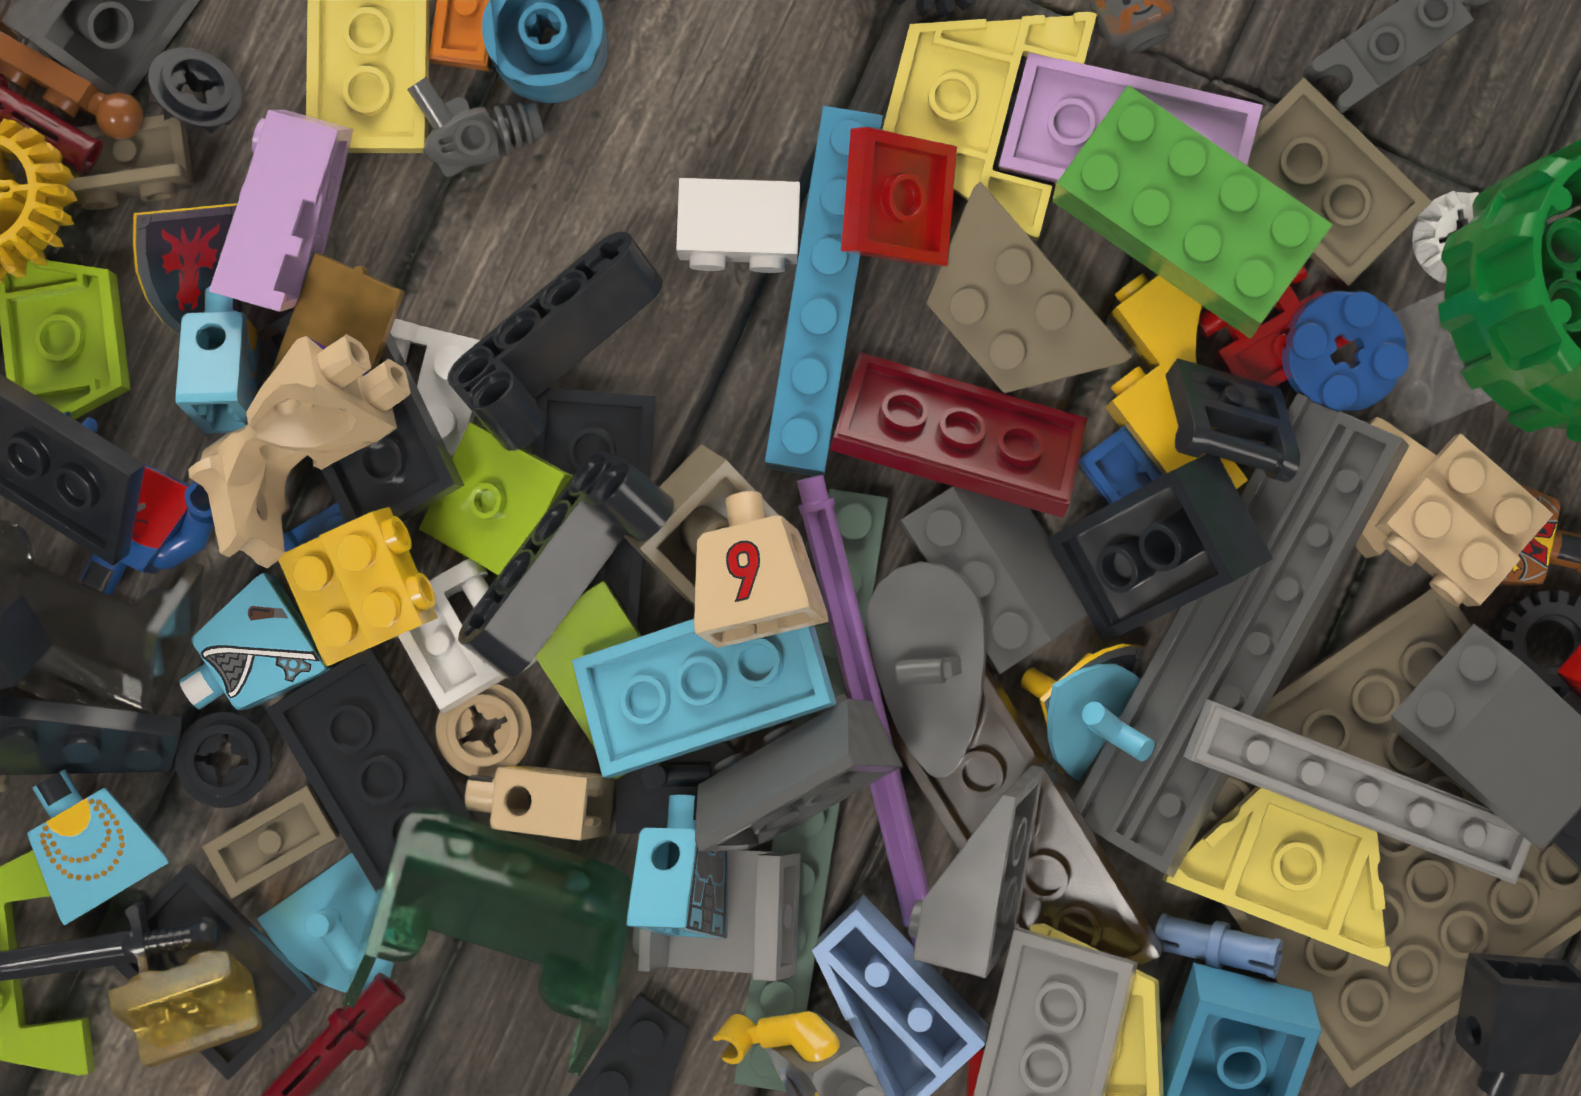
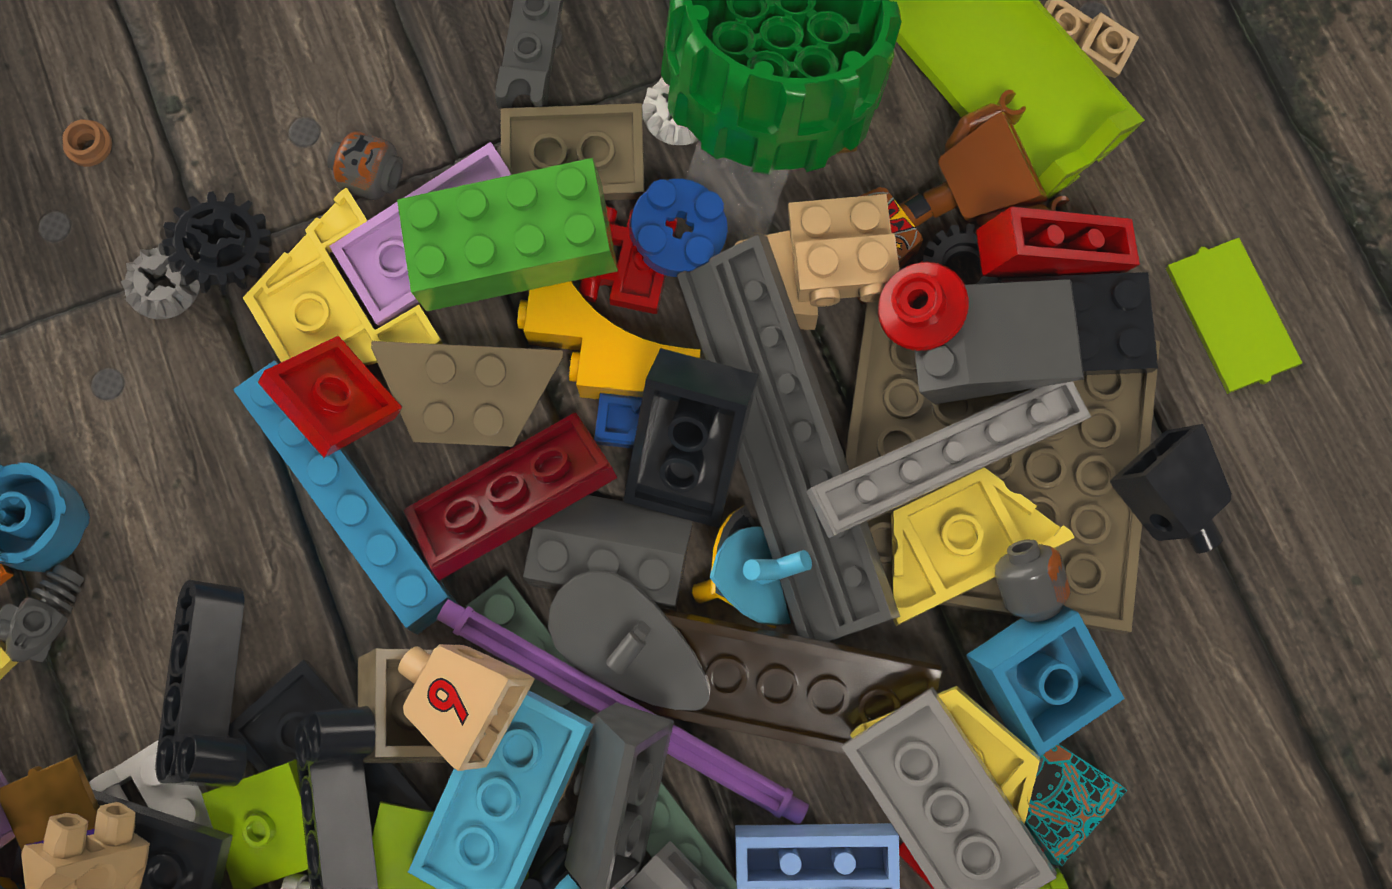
camera: 50 degrees left, 10 degrees down
(738, 223) = (251, 508): white brick -> none
(977, 900) = (798, 748): slope -> none
(1220, 945) = (966, 631): medium blue pin -> none
(1237, 406) = (654, 323): black plate -> none
(1312, 965) = (1032, 580): none -> dark grey head
(1470, 675) = (931, 324): none -> red piece

